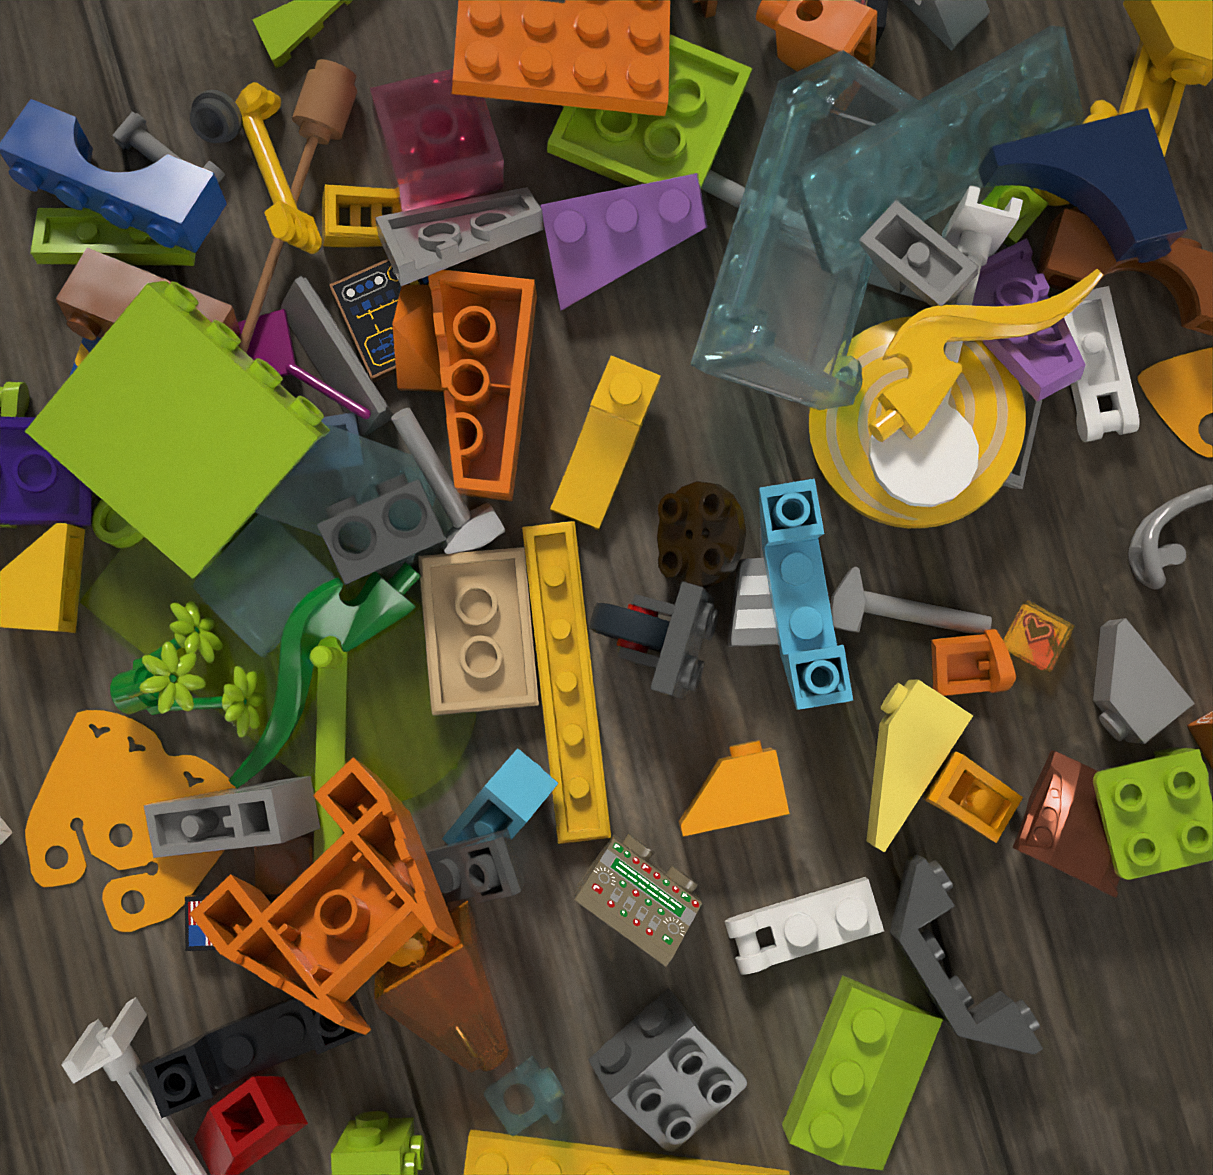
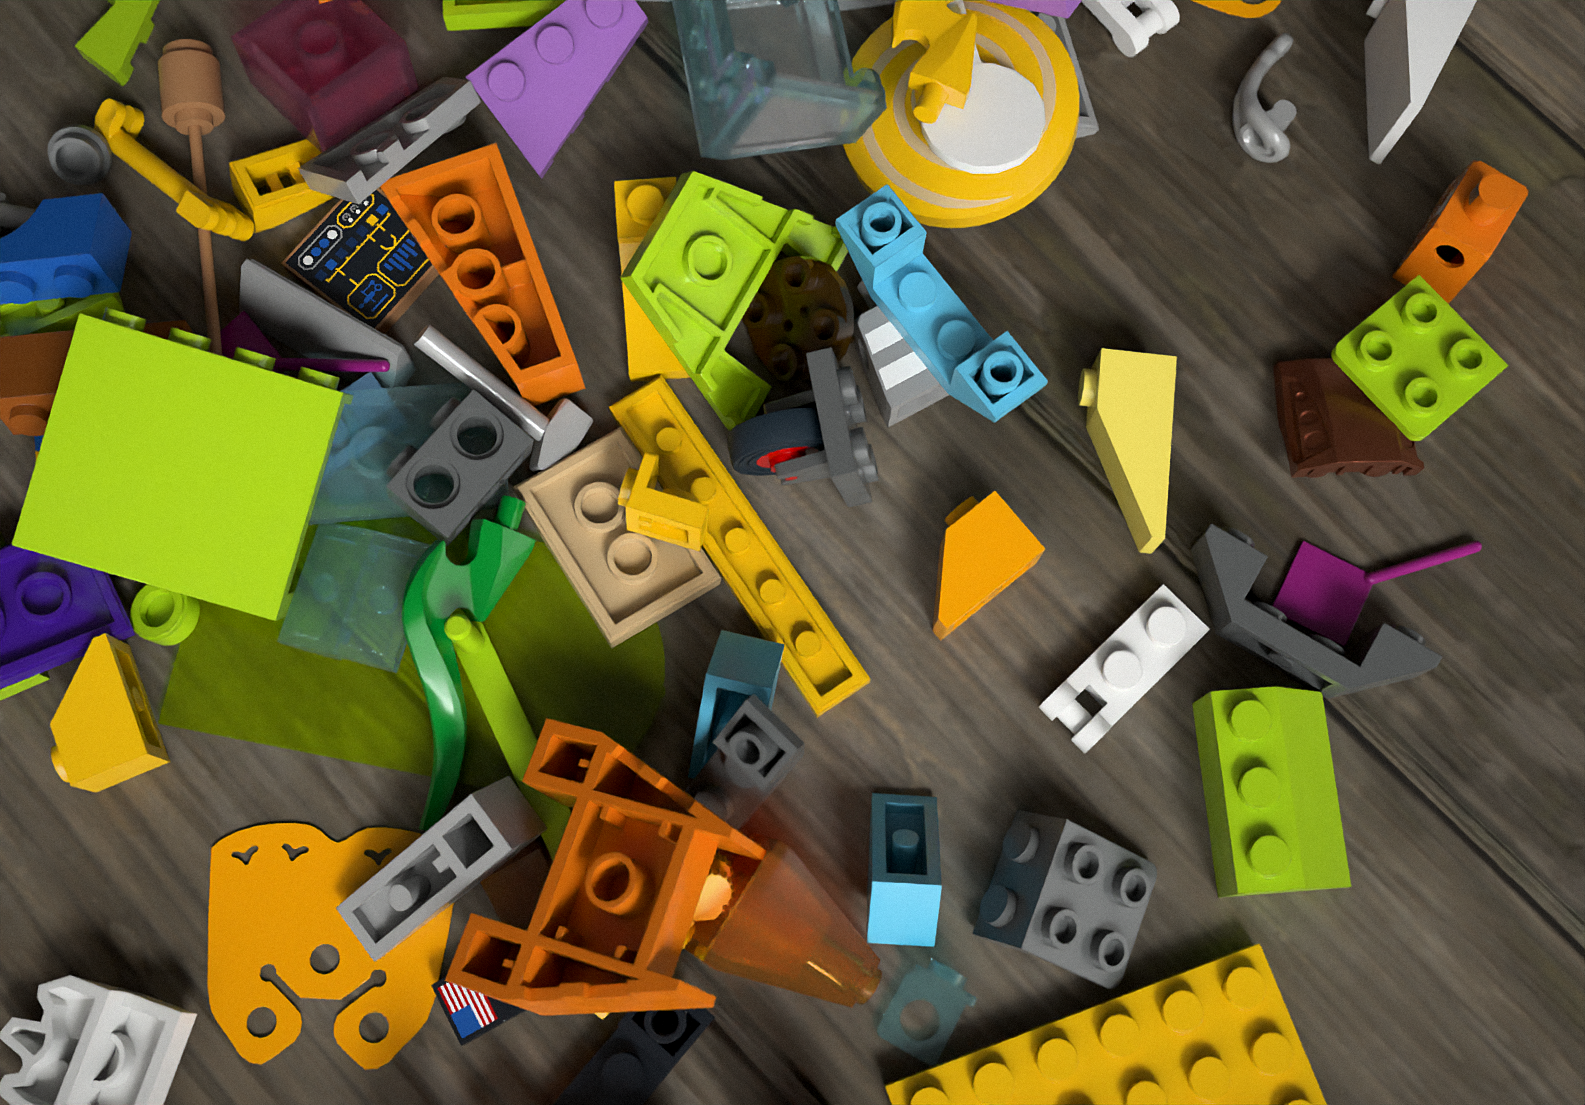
camera: 30 degrees left, 10 degrees down
(162, 683) = (278, 769): lime plant -> none
(416, 341) = (407, 272): orange slope -> none
(522, 643) = (664, 515): none -> yellow bracket
(561, 990) = (903, 870): none -> medium azure slope
(639, 897) = (934, 719): dark tan slope -> none
(645, 463) = (703, 271): none -> lime wing
(851, 602) = (997, 314): light grey piece -> none
(971, 664) = (1149, 313): orange tile -> none
(973, 796) = (1221, 441): light orange slope -> none
(992, 946) = (1330, 593): none -> magenta piece
(1037, 636) = (1195, 261): clear yellow tile -> none
(1134, 686) = (1317, 254): light grey slope -> none

